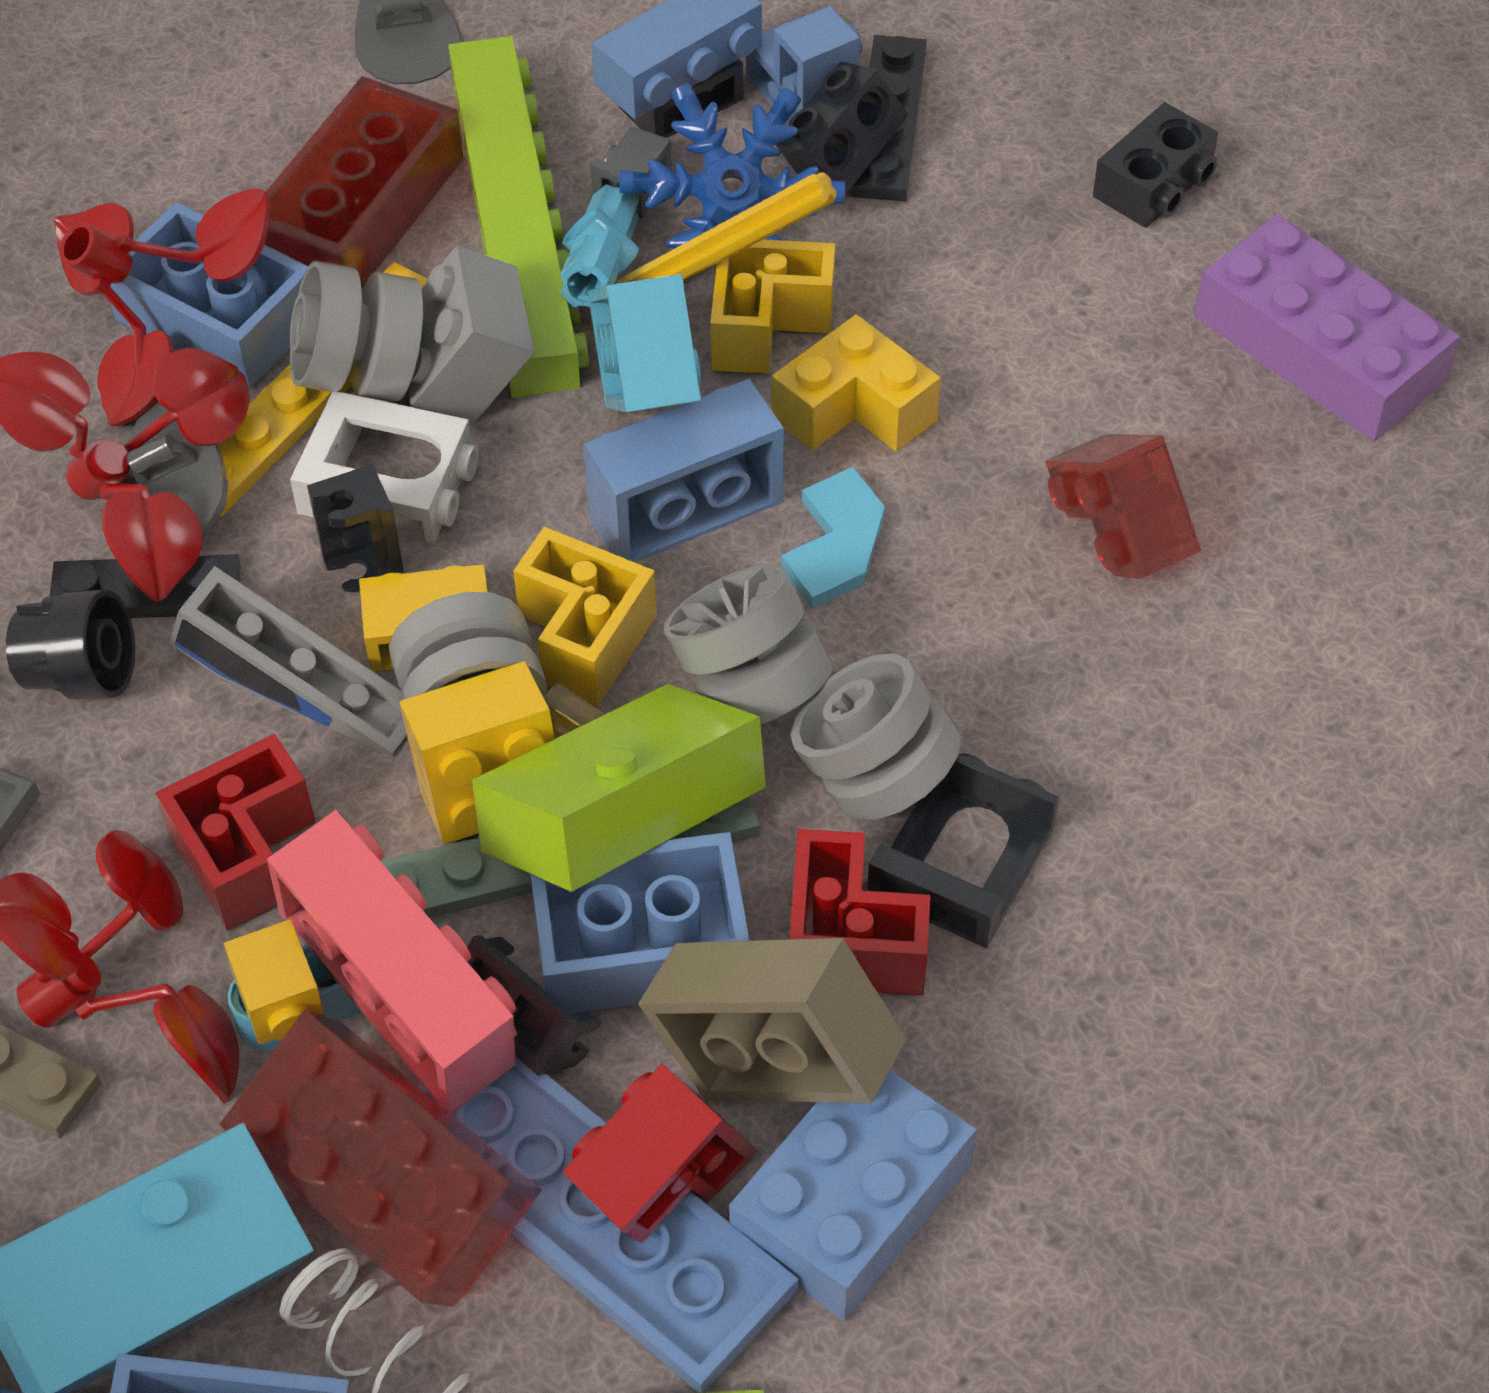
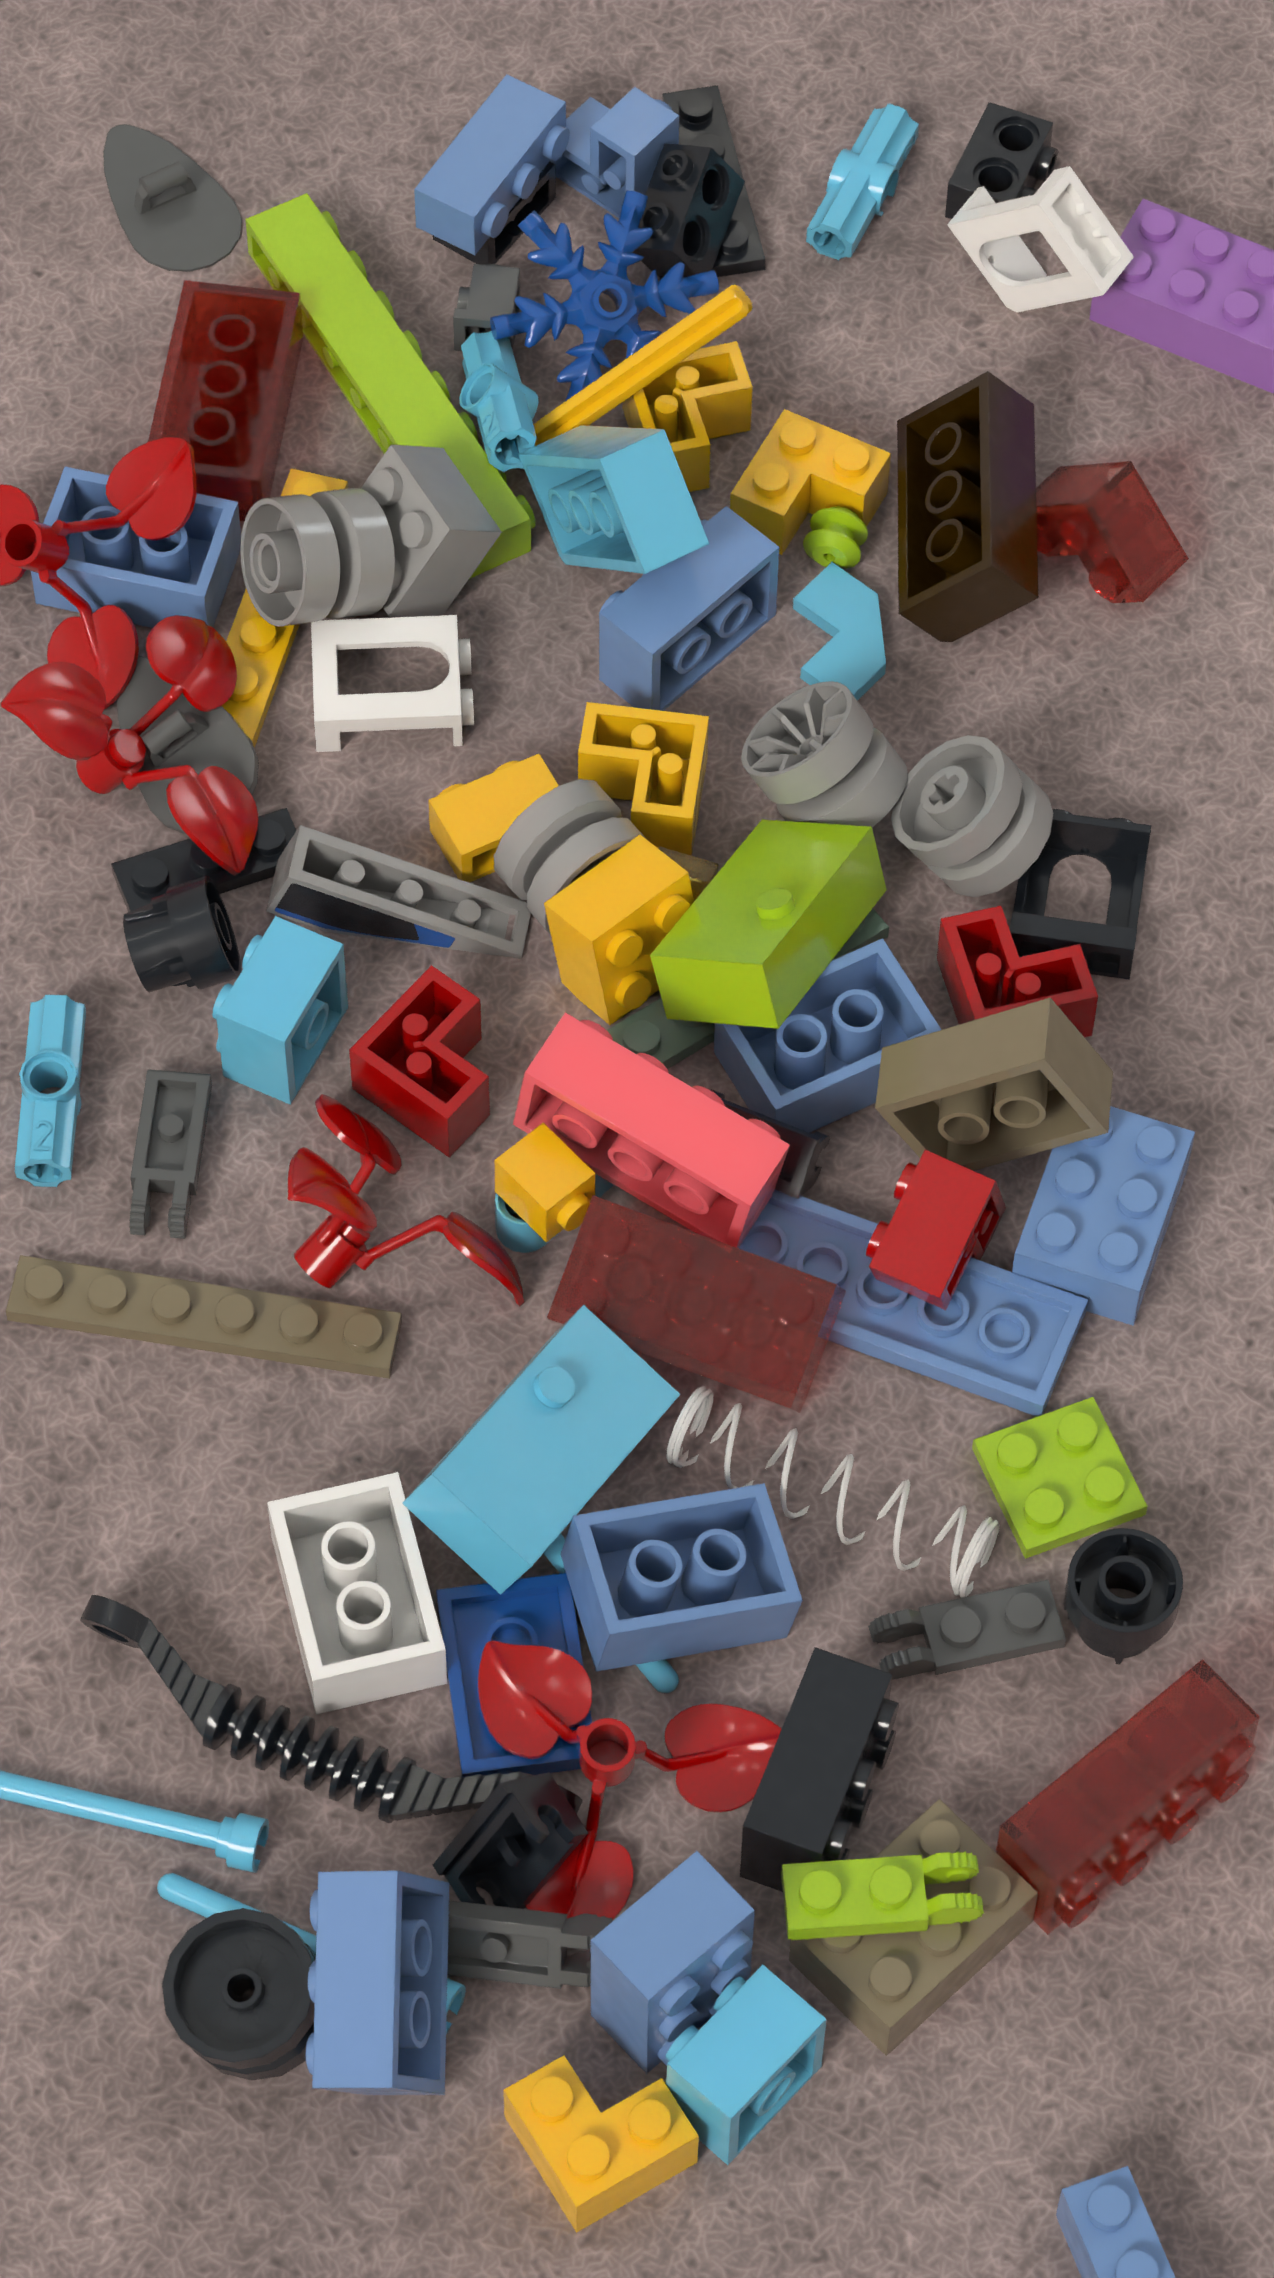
camera: 20 degrees left, 5 degrees up
(120, 736) = (281, 1009): none -> medium azure brick
(355, 524) = (406, 746): black hinge -> none
(865, 445) = (835, 537): none -> lime wheel
(994, 448) = (967, 509): none -> dark brown brick
(1023, 146) = (862, 182): none -> medium azure piece
(1186, 211) = (1067, 221): none -> white panel

